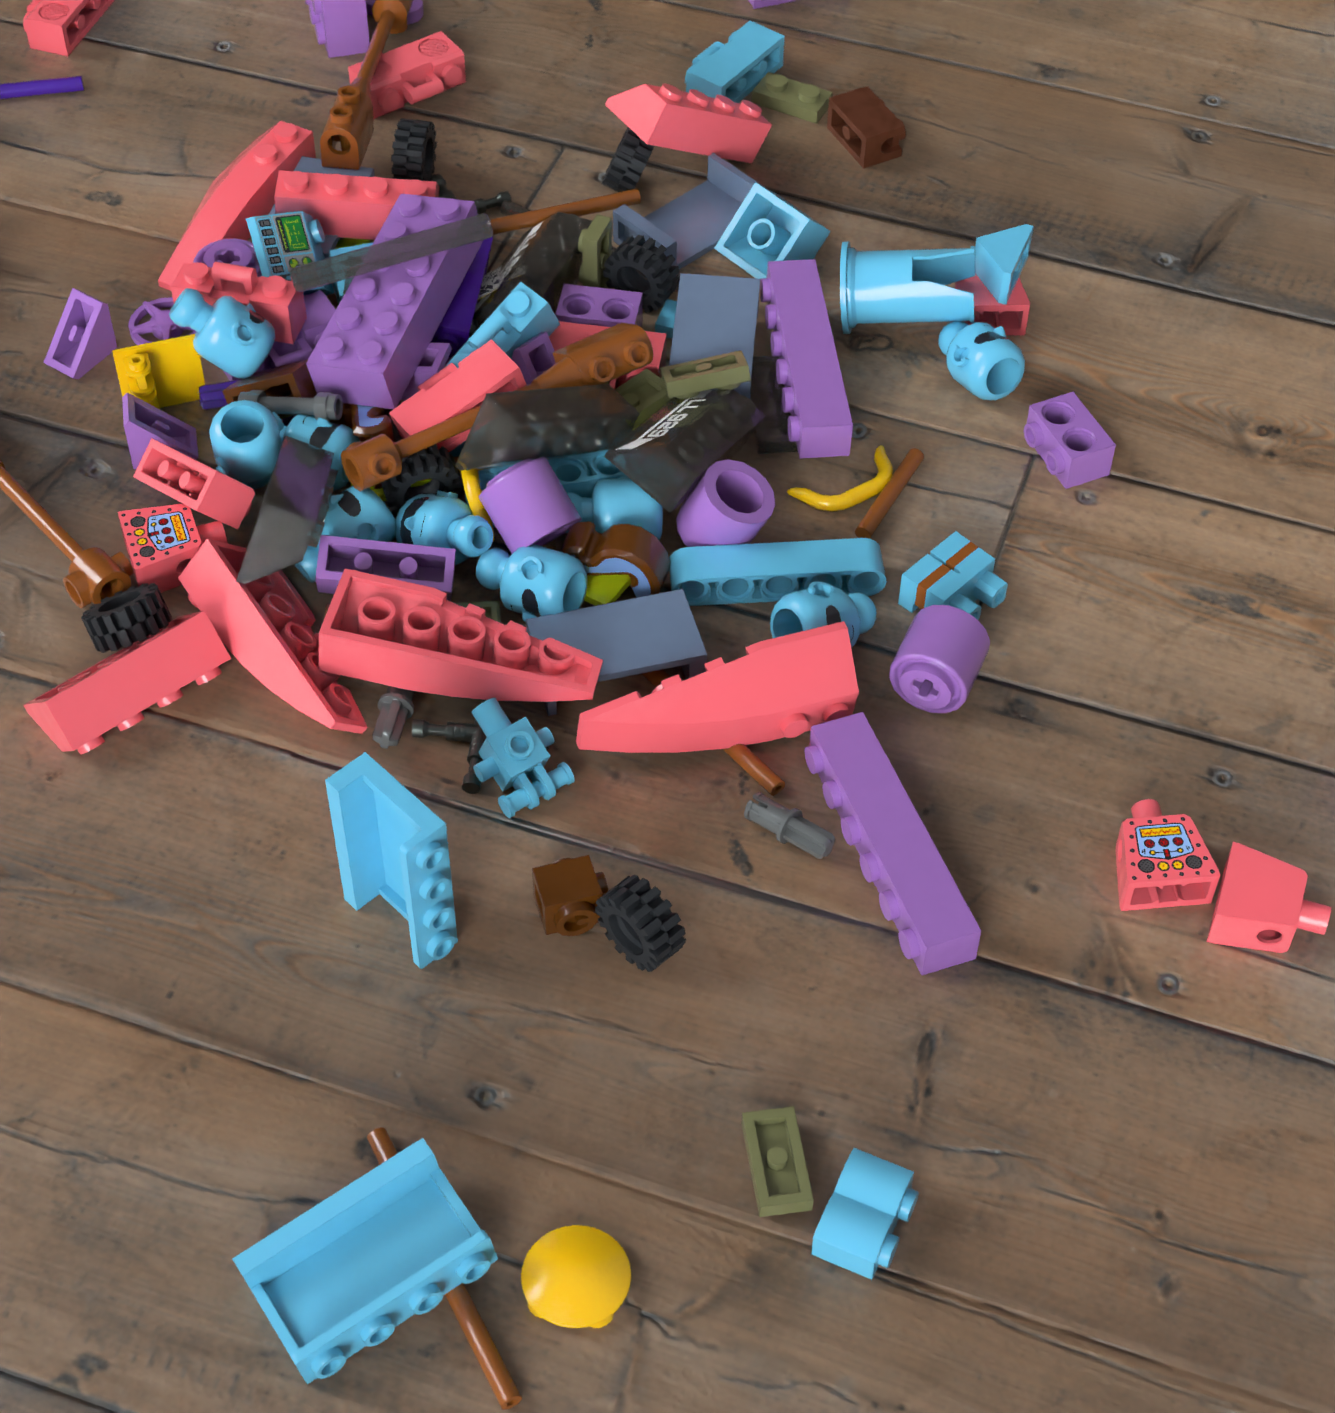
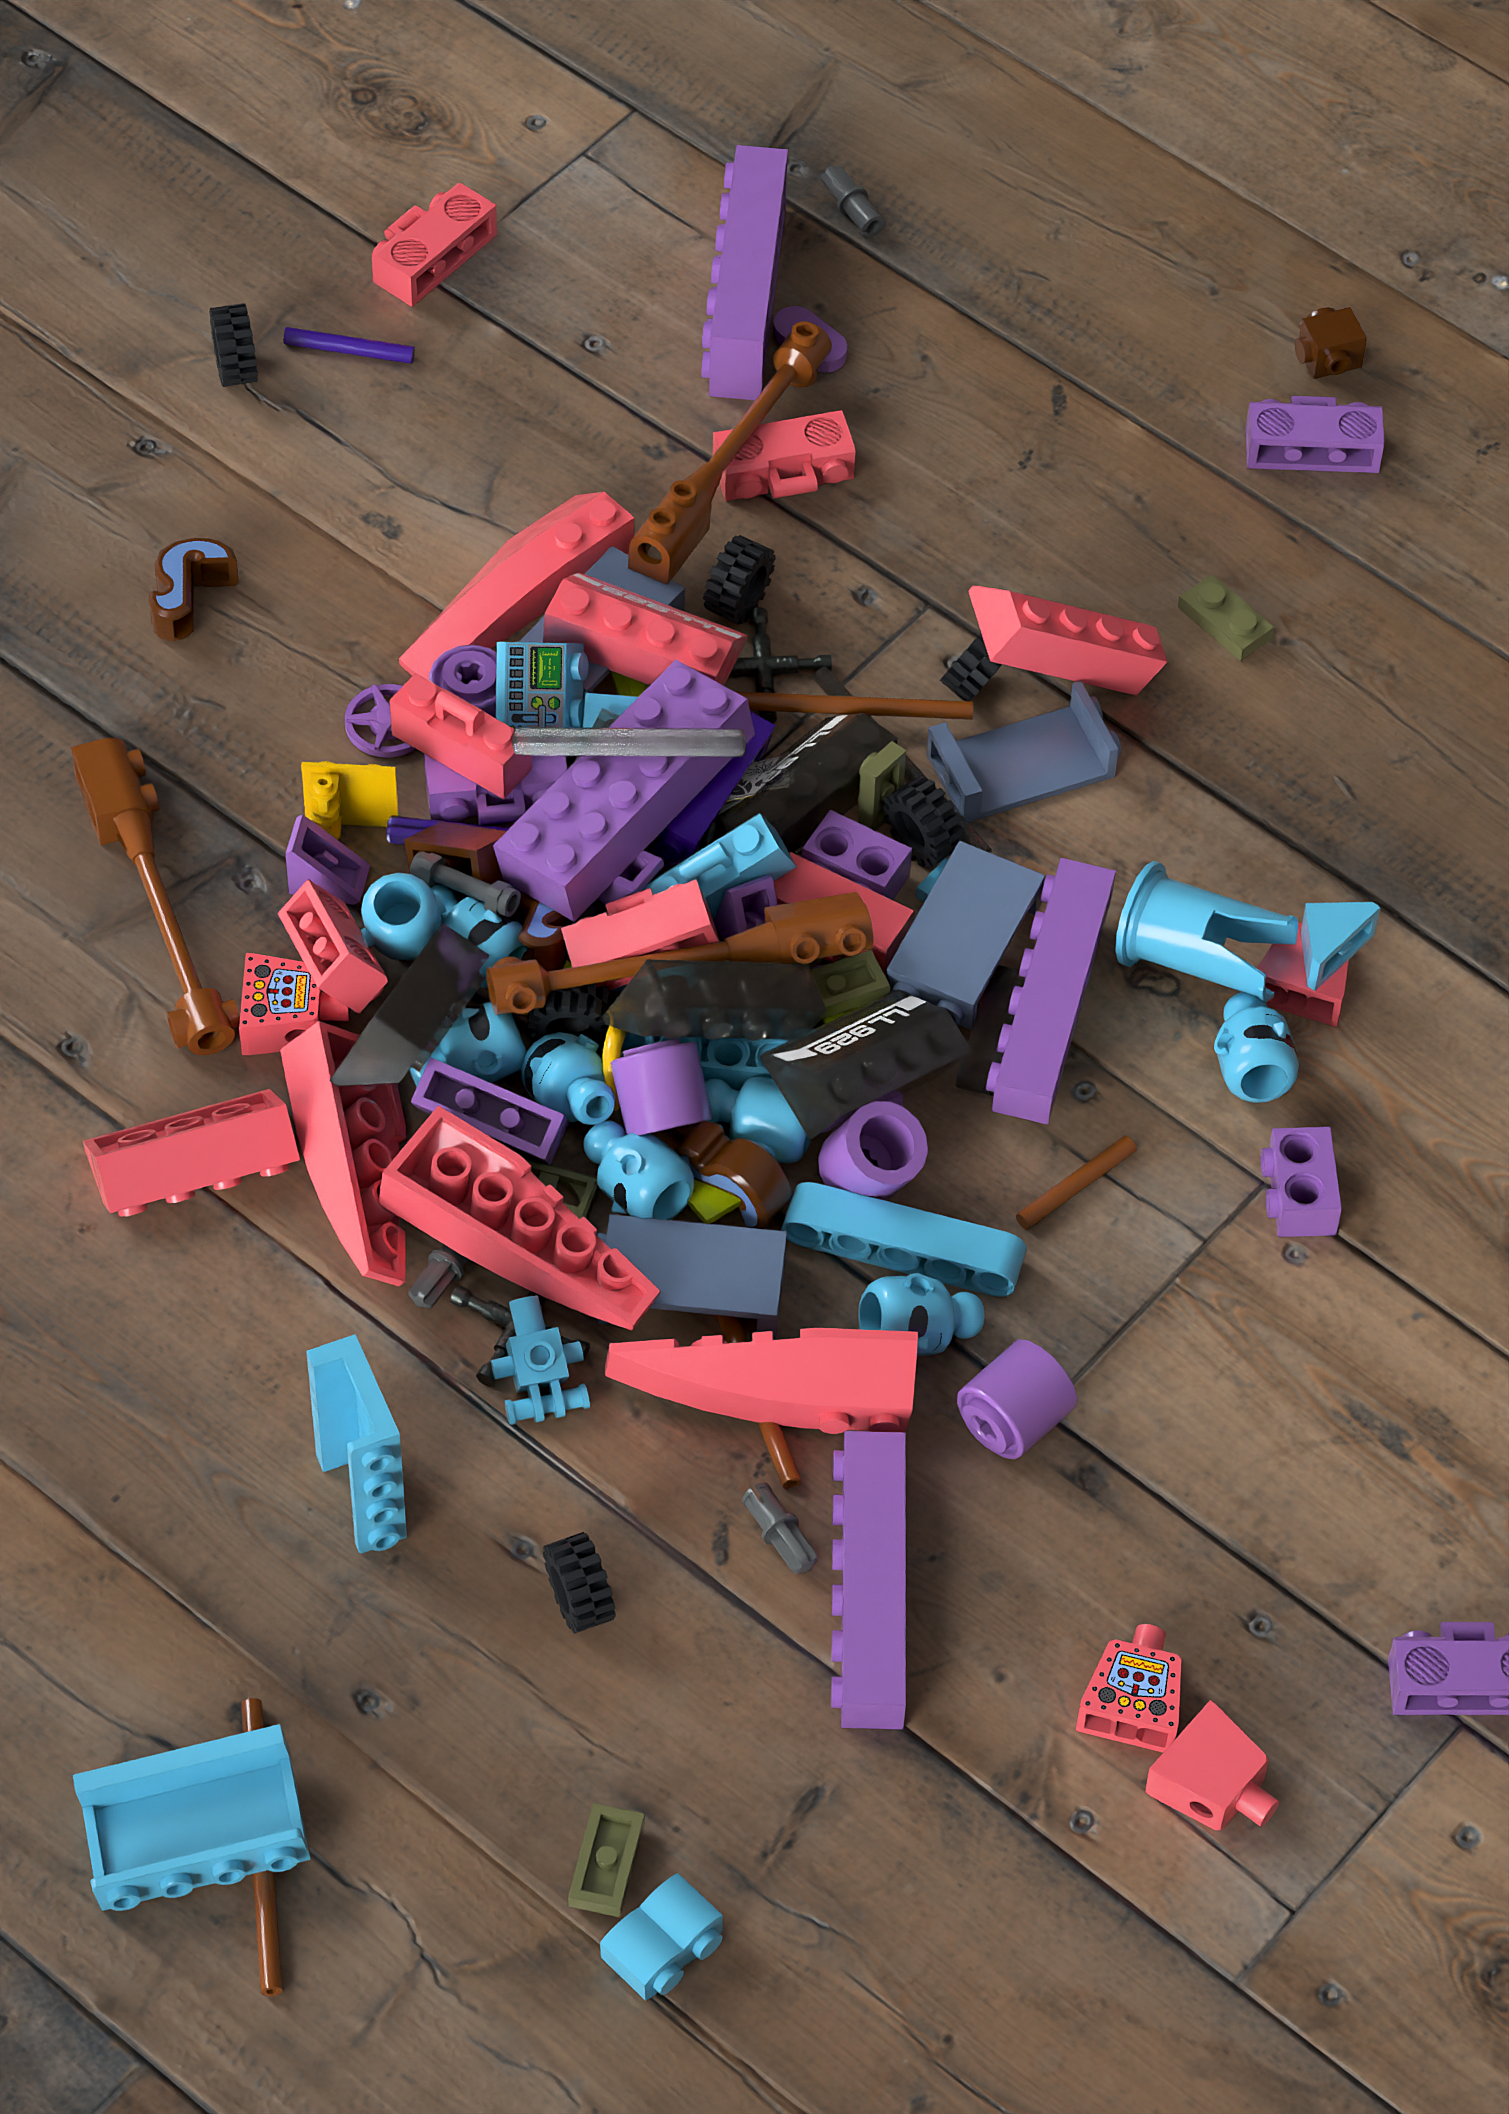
camera: 20 degrees right, 5 degrees up
(81, 336) = (287, 715): medium lavender slope -> none
(126, 617) = (212, 1080): black tyre -> none
(226, 333) = (428, 774): medium azure piece -> none
(568, 895) = (526, 1524): reddish brown brick -> none
(576, 1277) = (376, 1900): yellow dish -> none
(718, 372) = (922, 983): olive plate -> none
(739, 64) = (1170, 557): medium azure piece -> none
(769, 230) = (1102, 810): medium azure slope -> none
(853, 496) = (1040, 1171): yellow animal -> none
(865, 126) = (1288, 689): copper brick -> none
(953, 576) = (1081, 1313): medium azure hips -> none

